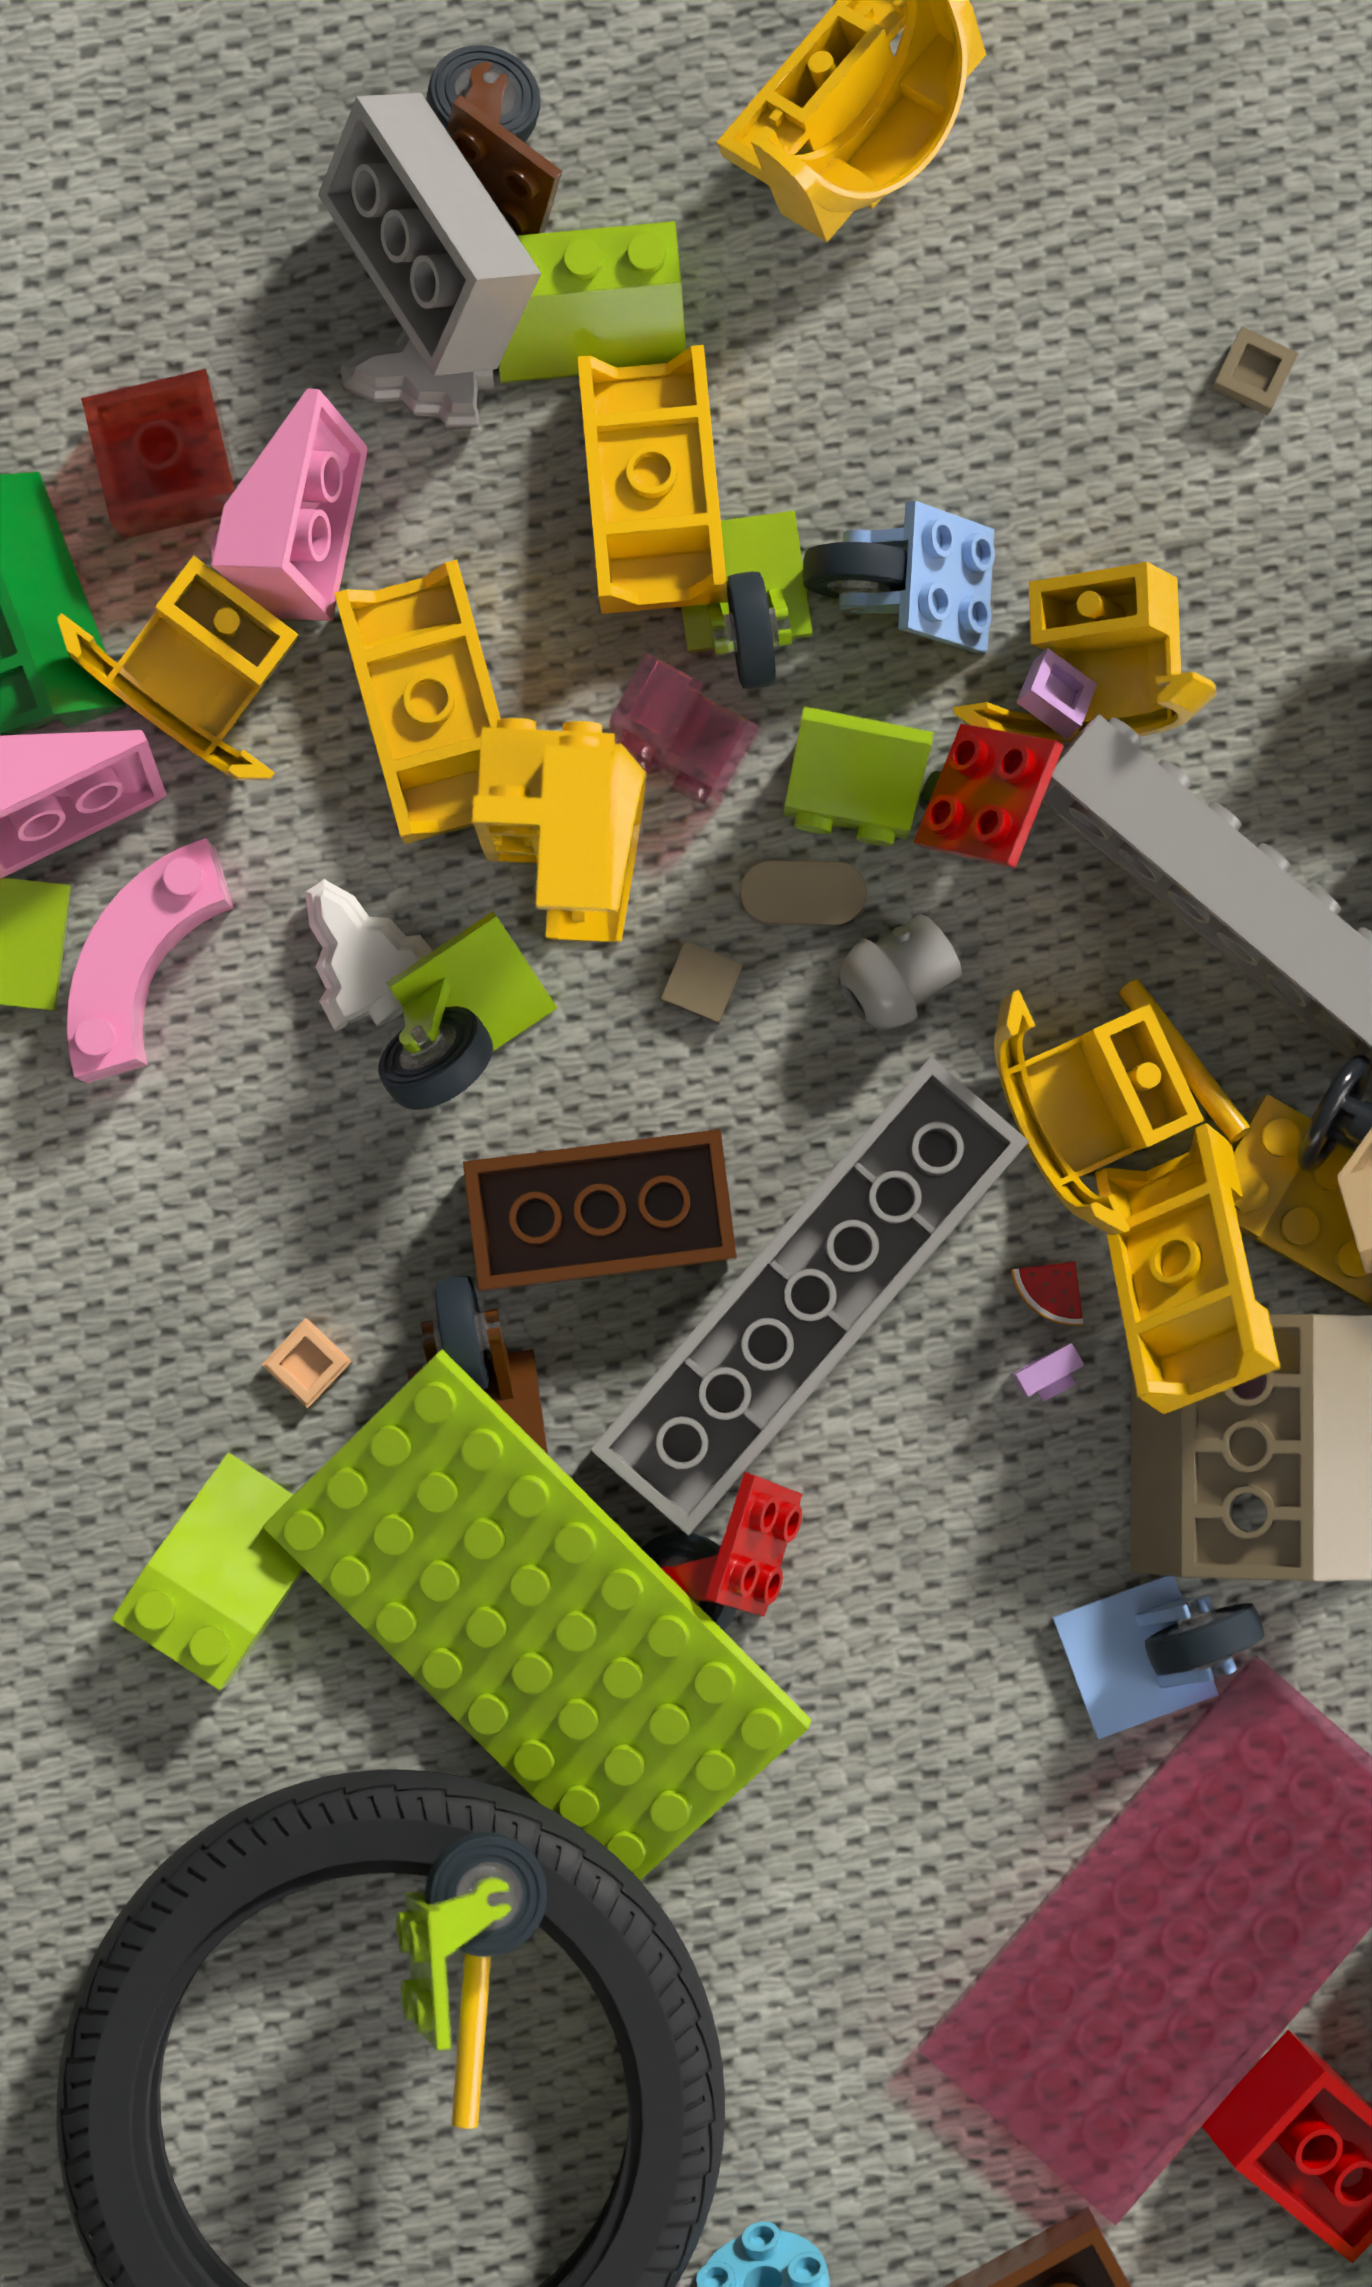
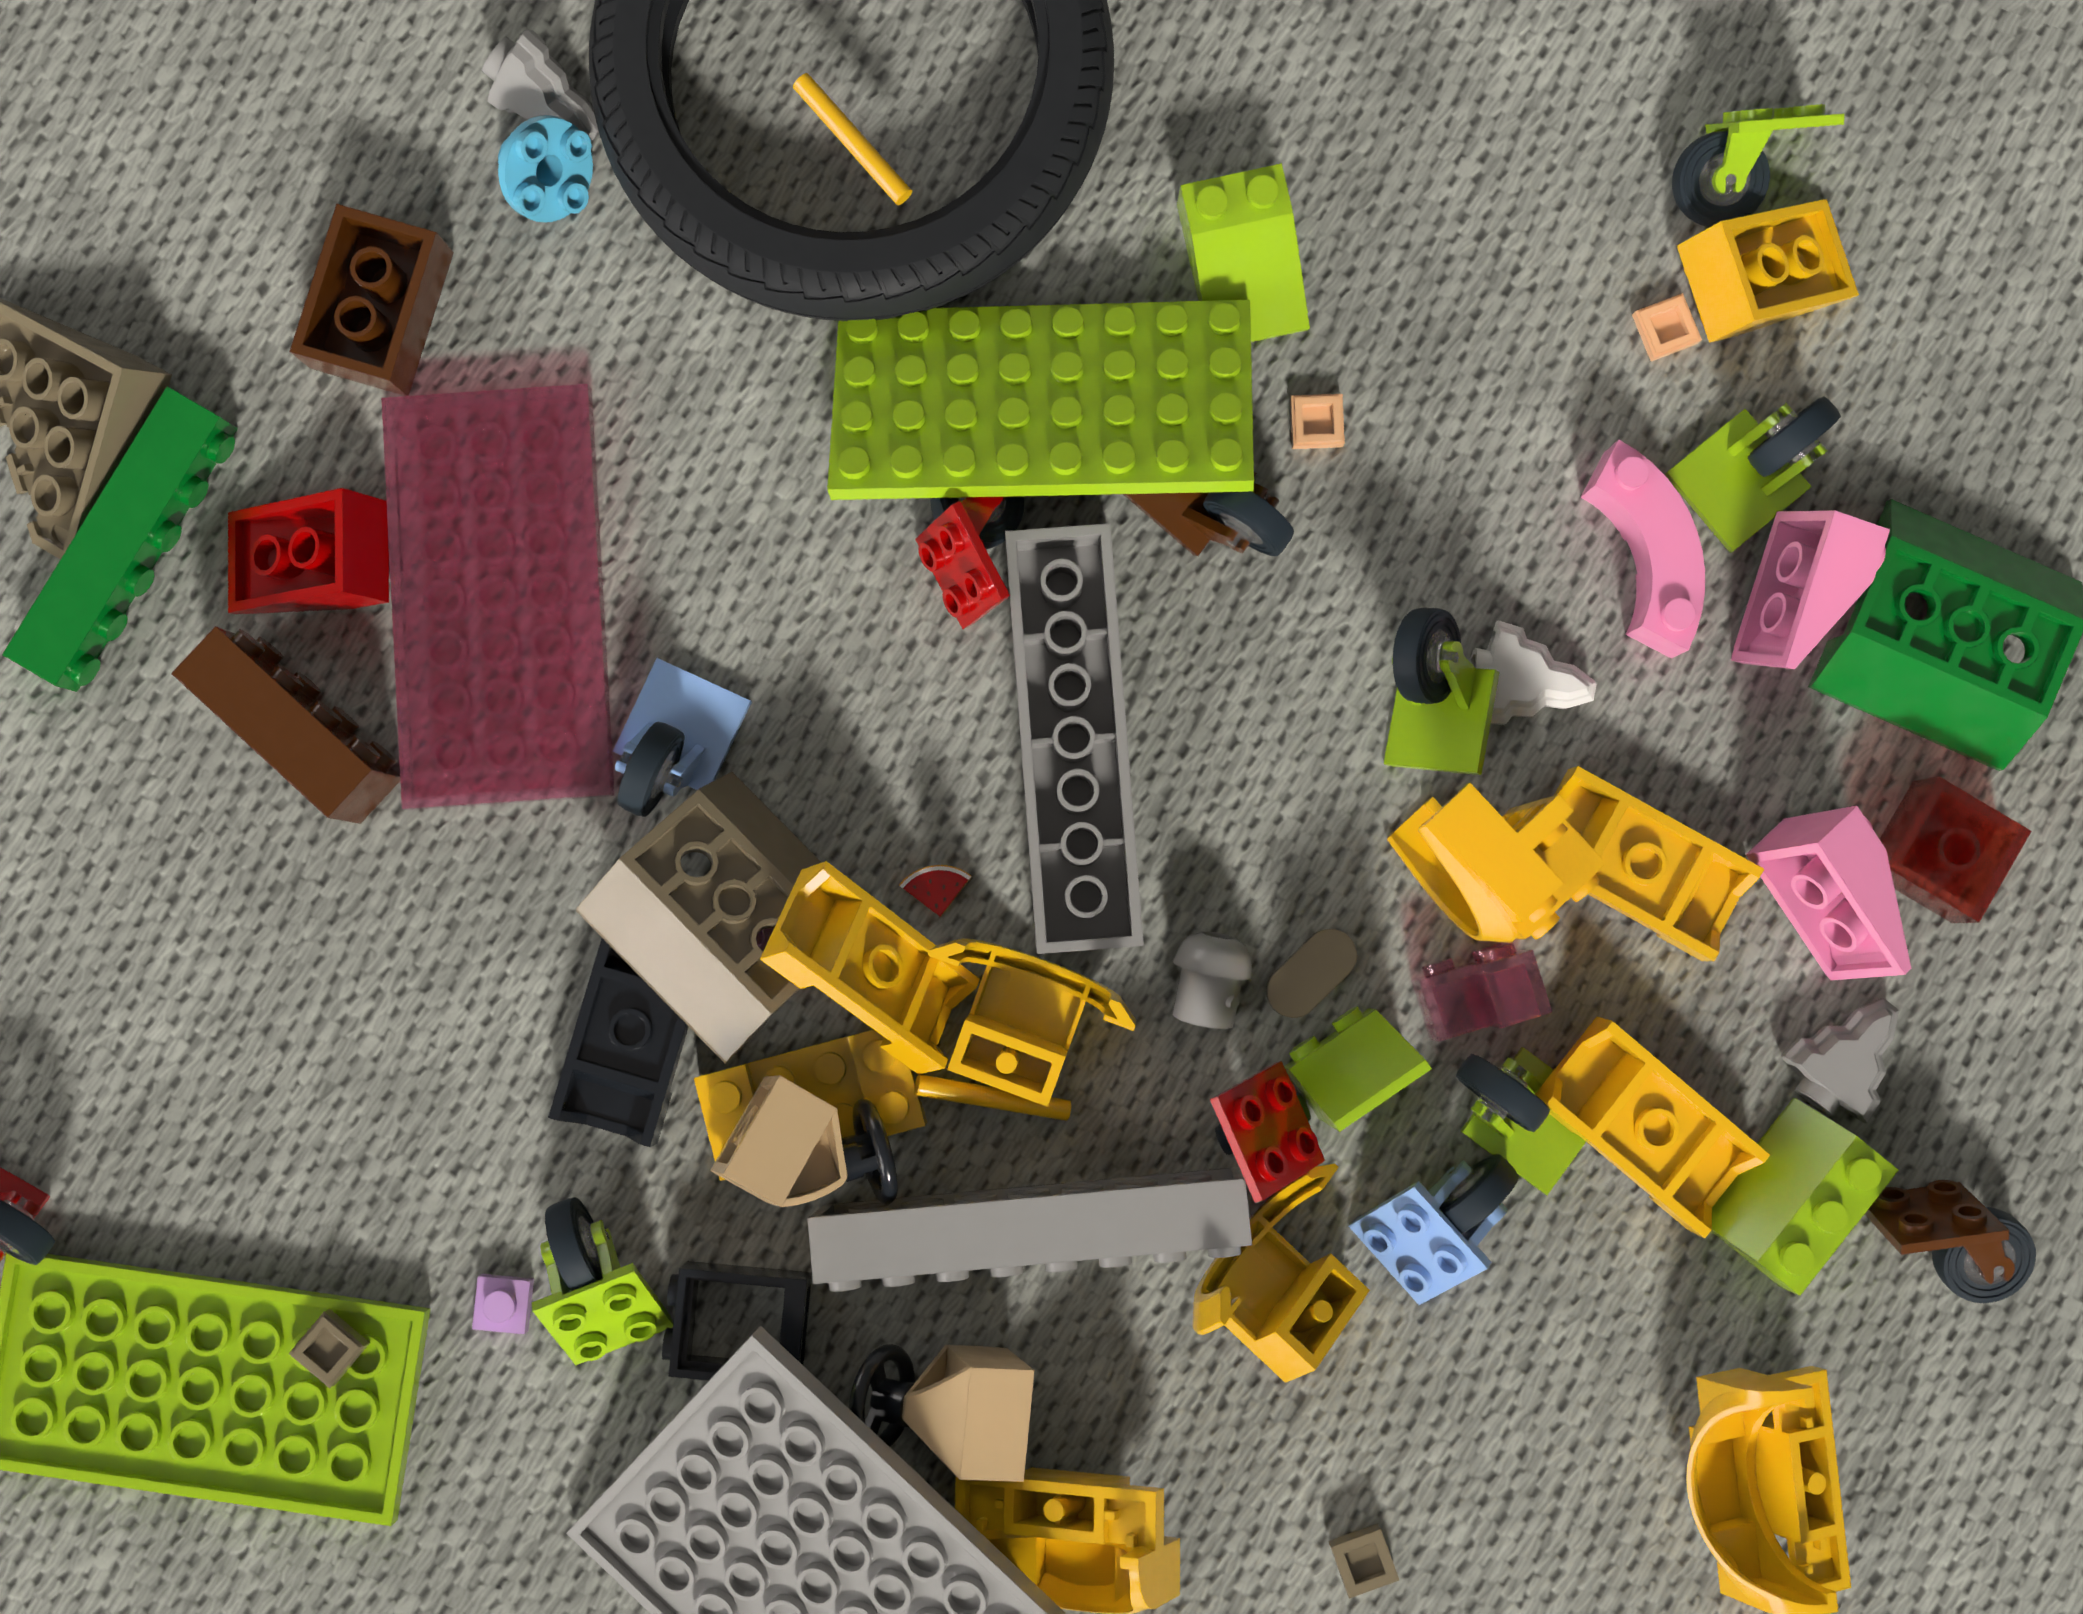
camera: 135 degrees right, 0 degrees up
(194, 665) = (1800, 744): yellow piece -> none
(428, 233) = (1938, 1136): light grey brick -> none
(478, 1899) = (918, 202): plate -> none
(599, 1210) = (1241, 667): reddish brown brick -> none
(701, 982) = (1316, 862): dark tan tile -> none
(1049, 1373) = (890, 836): lavender plate -> none
(1056, 693) = (1285, 1239): lavender plate -> none

